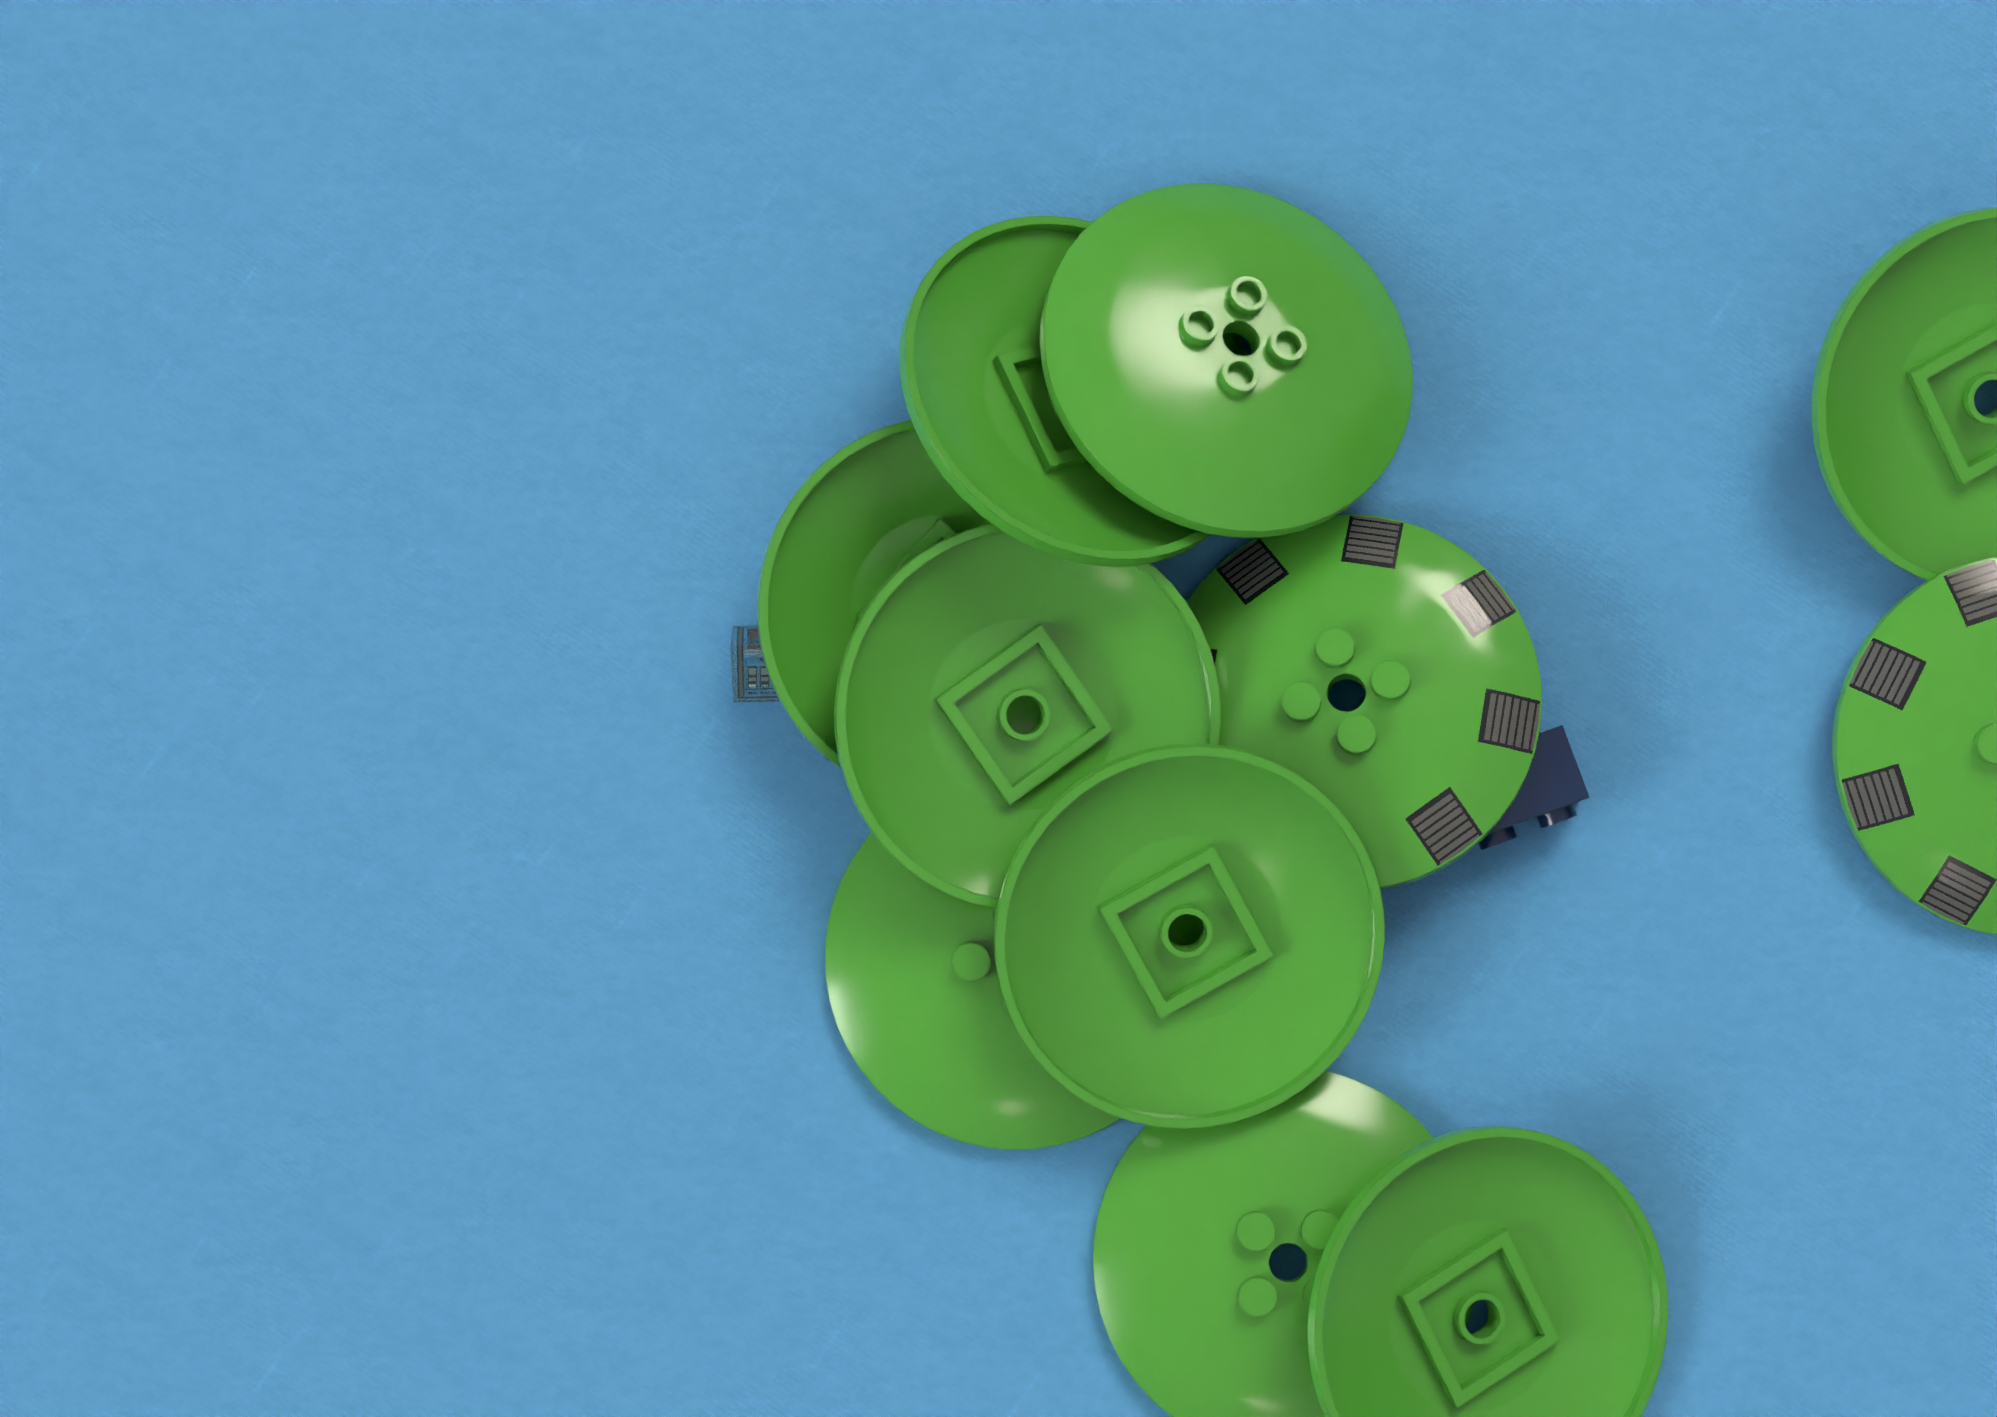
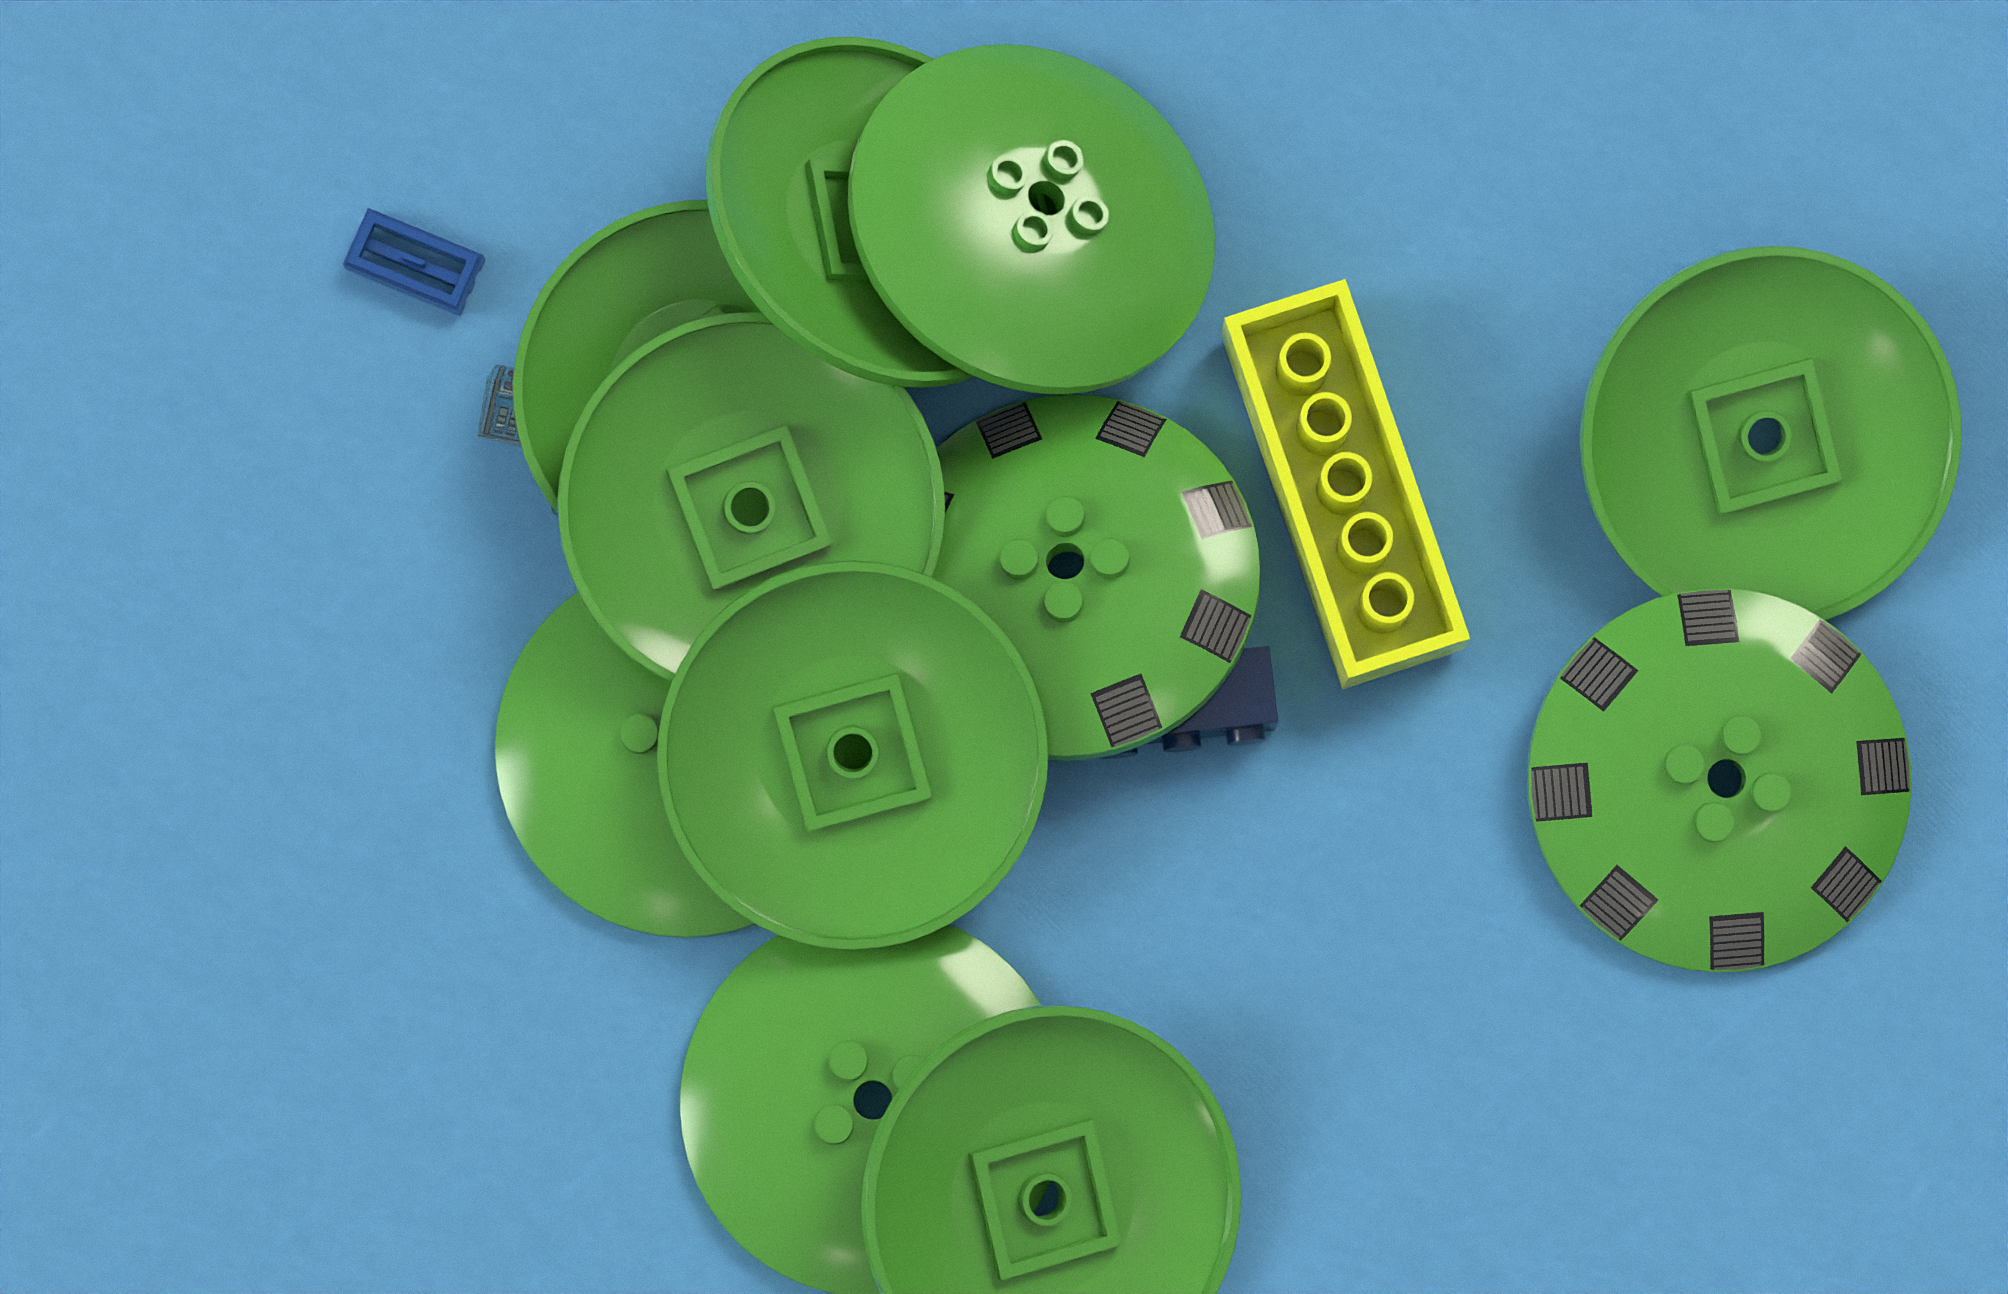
camera: 15 degrees right, 5 degrees down
(679, 553) = (462, 282): none -> blue tile
(1594, 546) = (1344, 484): none -> neon yellow brick

